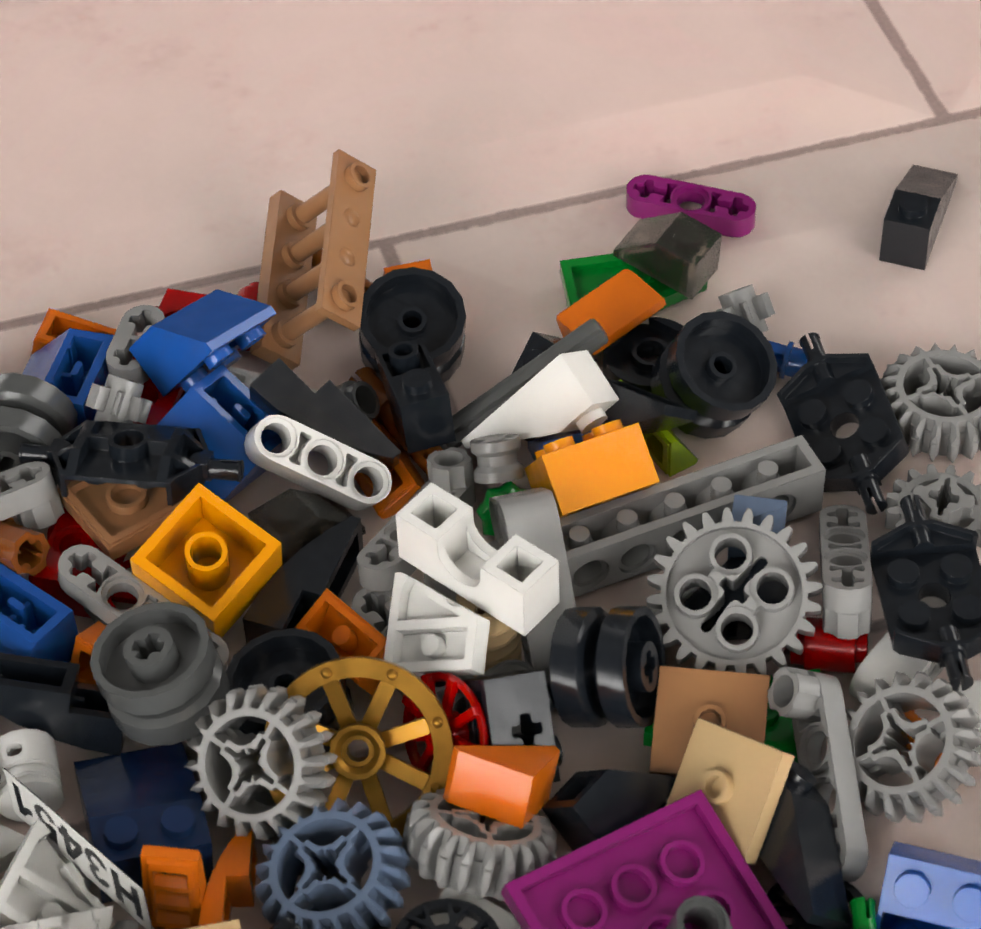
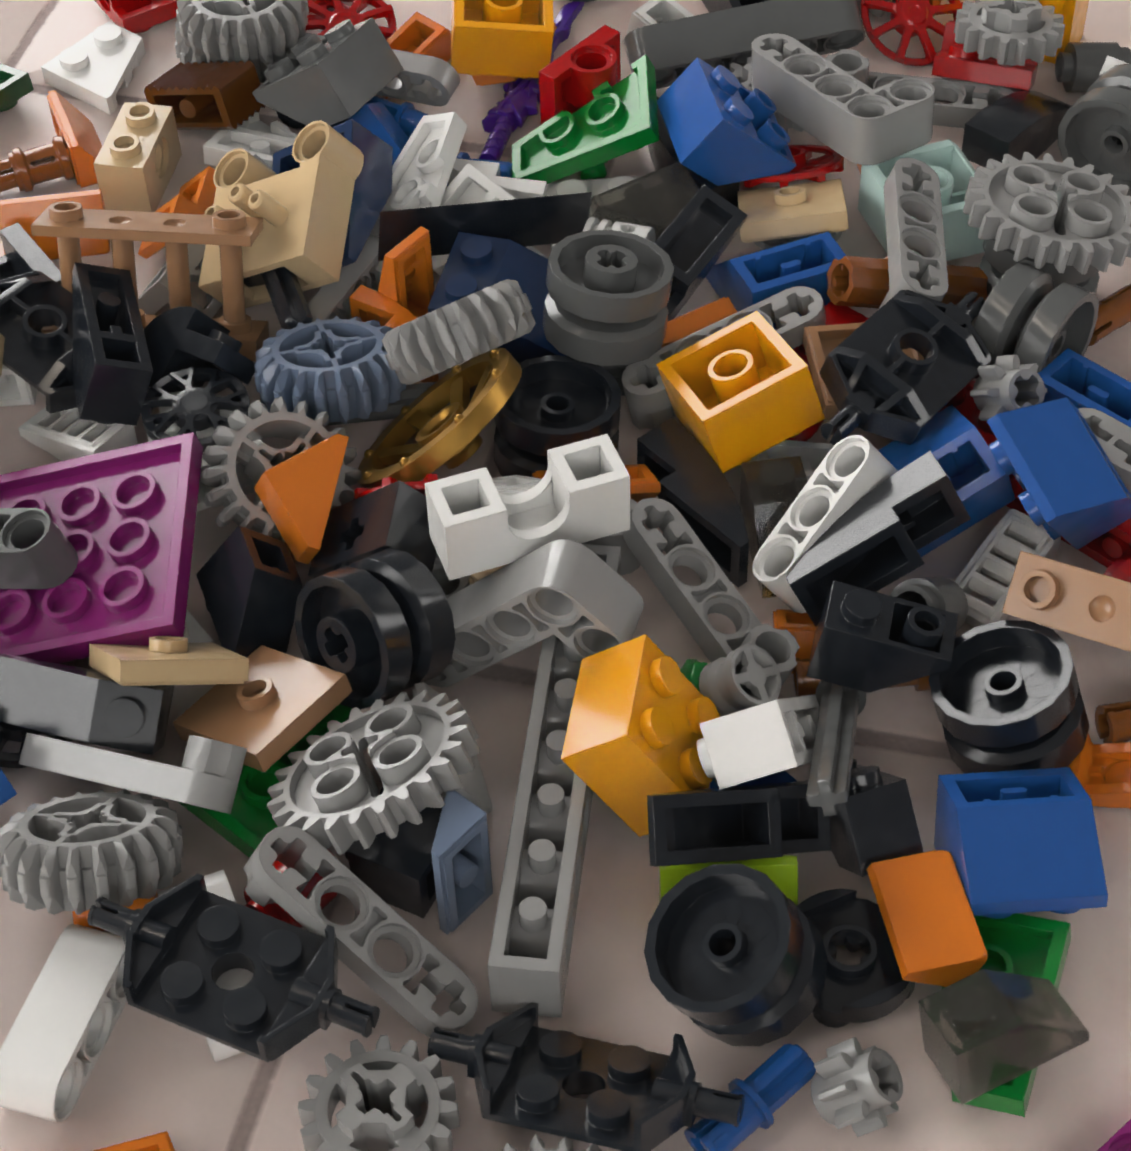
camera: 120 degrees right, 0 degrees up
(519, 290) = (1021, 841): none -> blue slope

